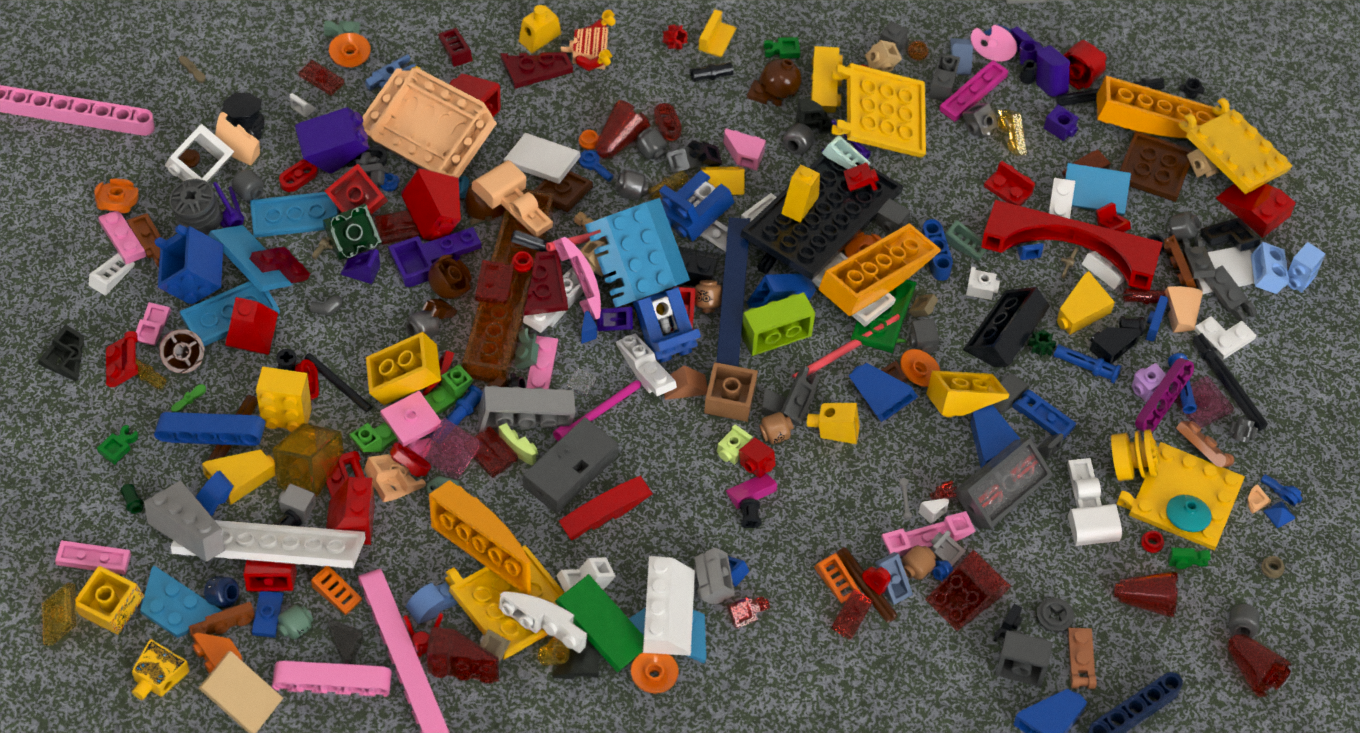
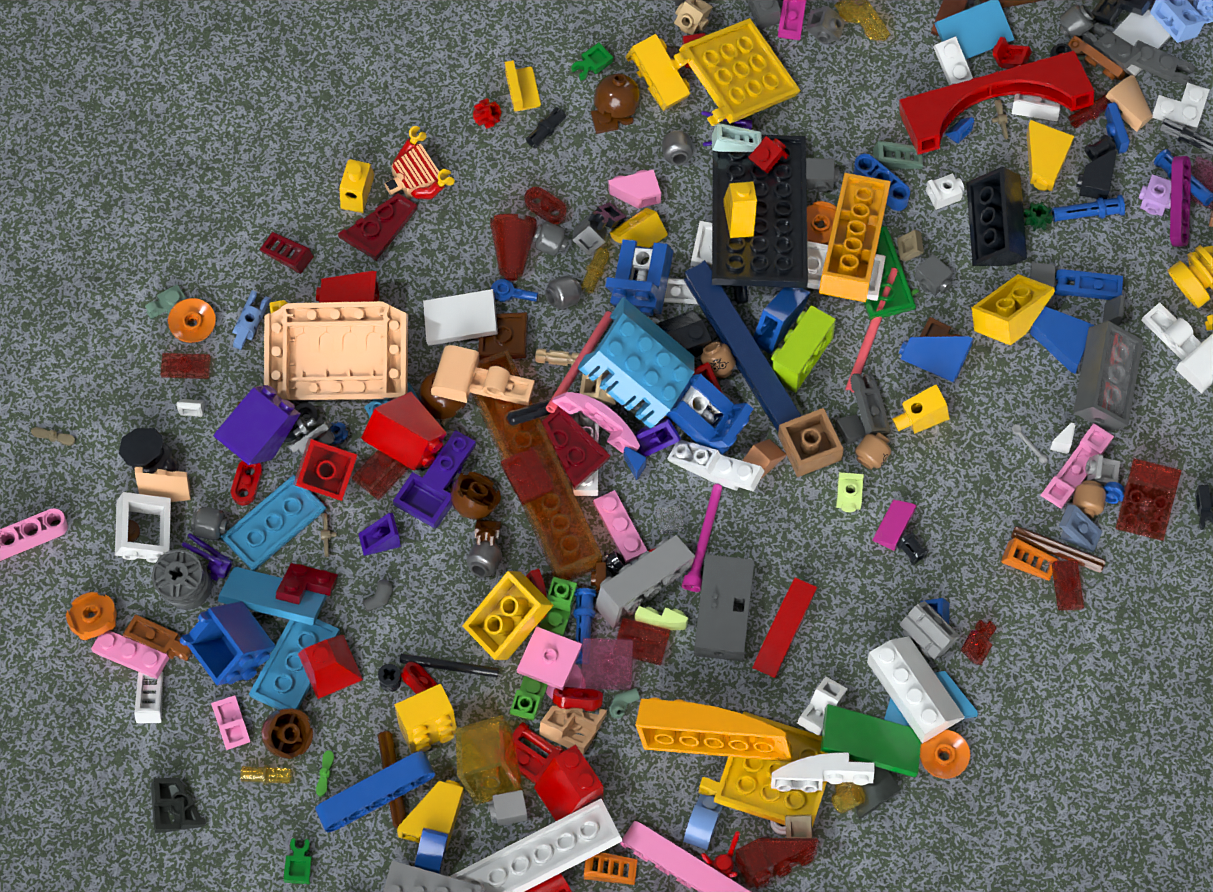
camera: 30 degrees left, 10 degrees up
(121, 360) = (231, 781): red plate -> none
(289, 519) = (515, 831): black bush -> none
(352, 232) = (349, 509): dark green slope -> none
(520, 257) = (536, 432): red plate -> none
(527, 353) = (598, 520): sand green plate -> none
(588, 139) = (487, 270): orange plate -> none
(757, 457) = (880, 491): red brick -> none
(813, 116) = (675, 116): pearl dark grey slope -> none
(877, 579) = (1069, 540): red tile -> none
(918, 366) = (952, 309): orange dish -> none
(944, 491) = (1063, 417): clear red plate -> none
(1010, 184) = (896, 74): red bracket -> none

